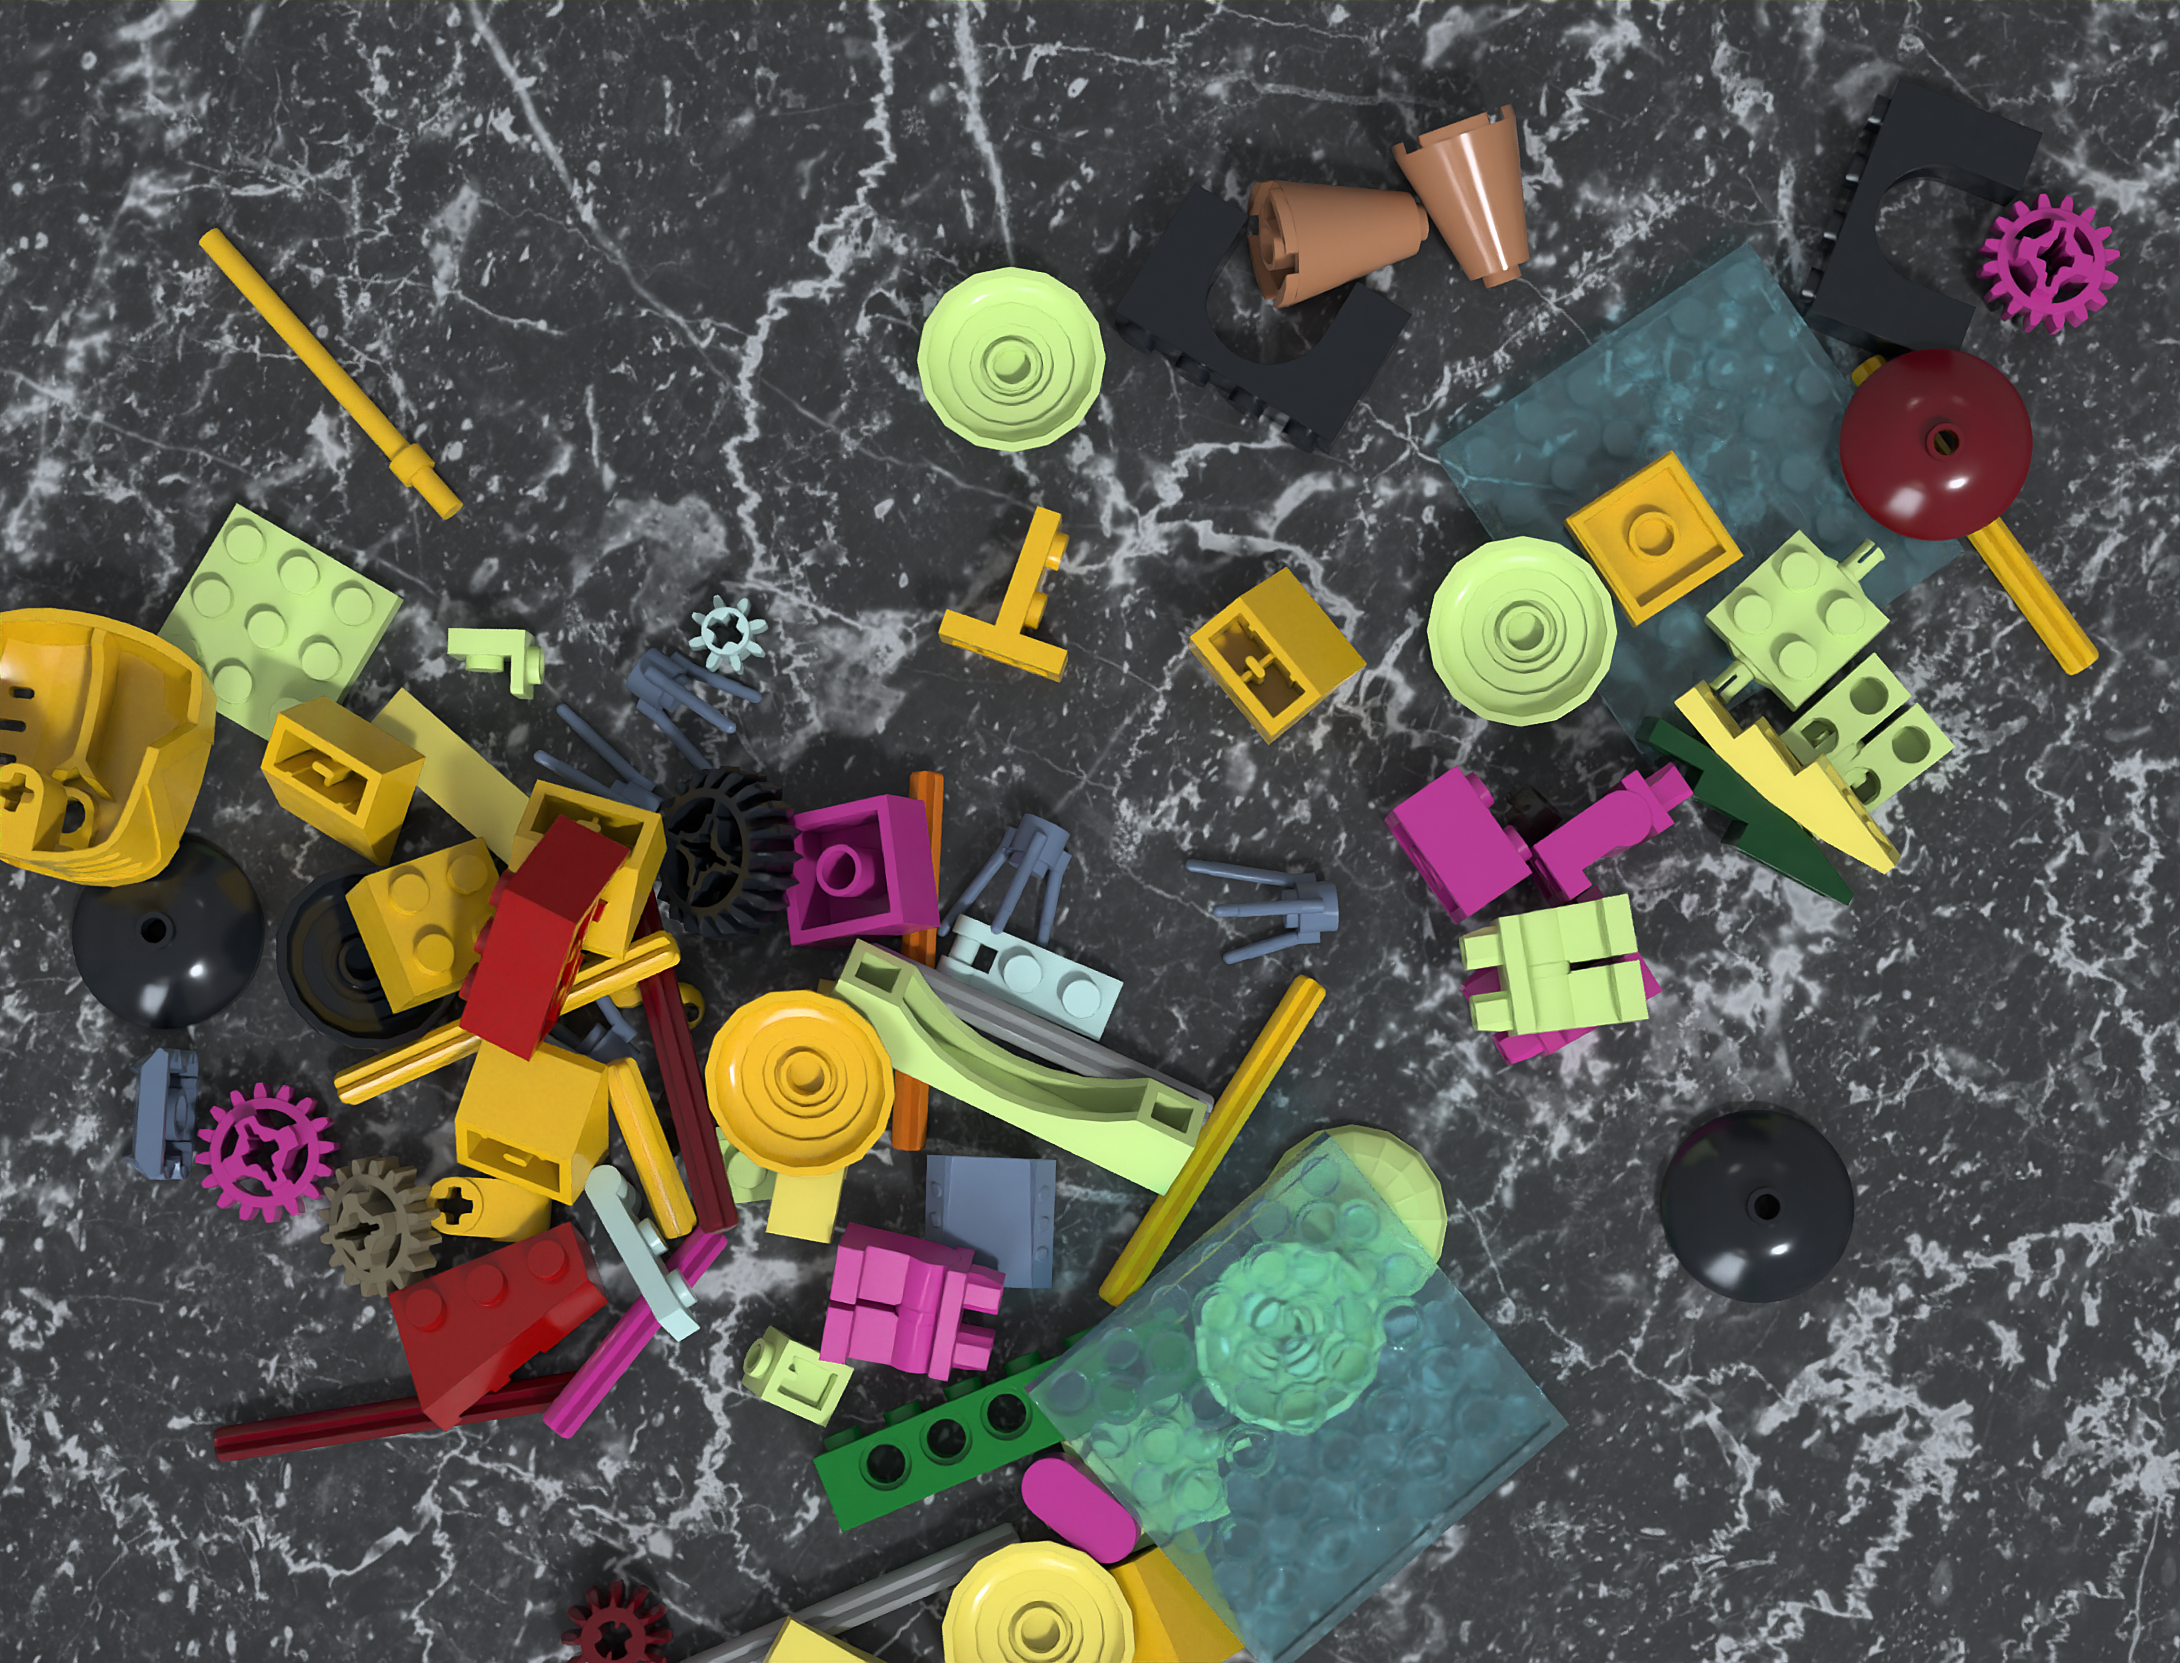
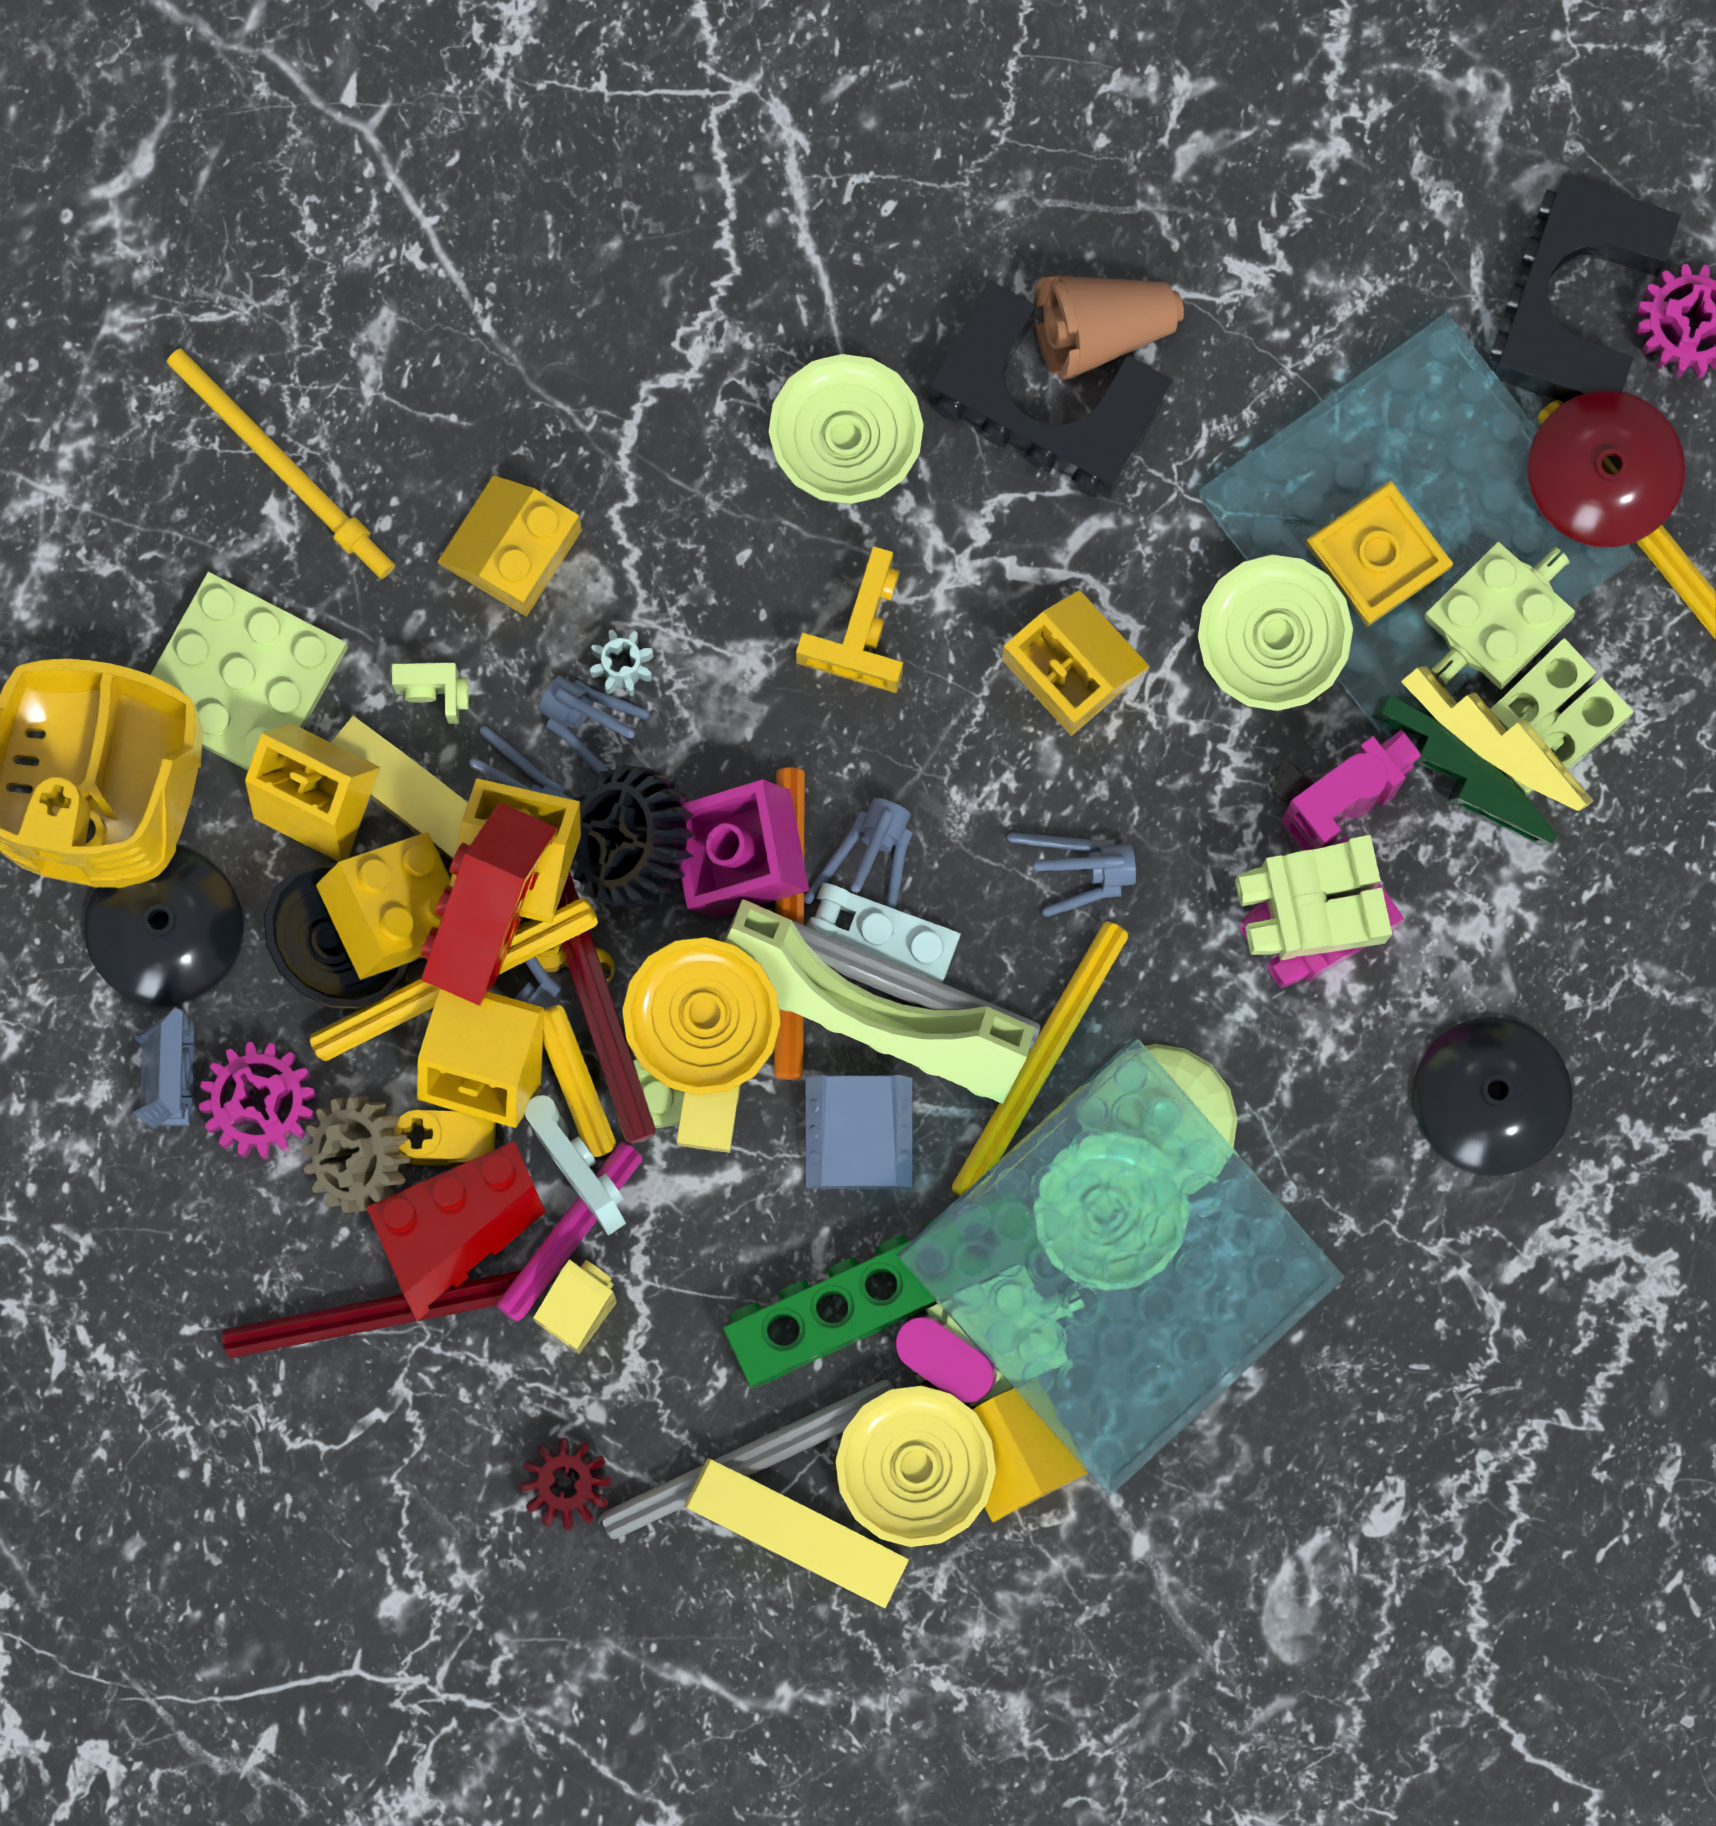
camera: 10 degrees left, 5 degrees down
(603, 483) = (512, 543): none -> yellow slope
(639, 1421) = (576, 1304): none -> light yellow slope
(794, 1377) = (704, 1265): yellowish green bracket -> none
(905, 1304) = (793, 1200): dark pink hips -> none
(1459, 843) = (1231, 806): dark pink brick -> none
(1474, 193) = (1219, 280): nougat cone -> none

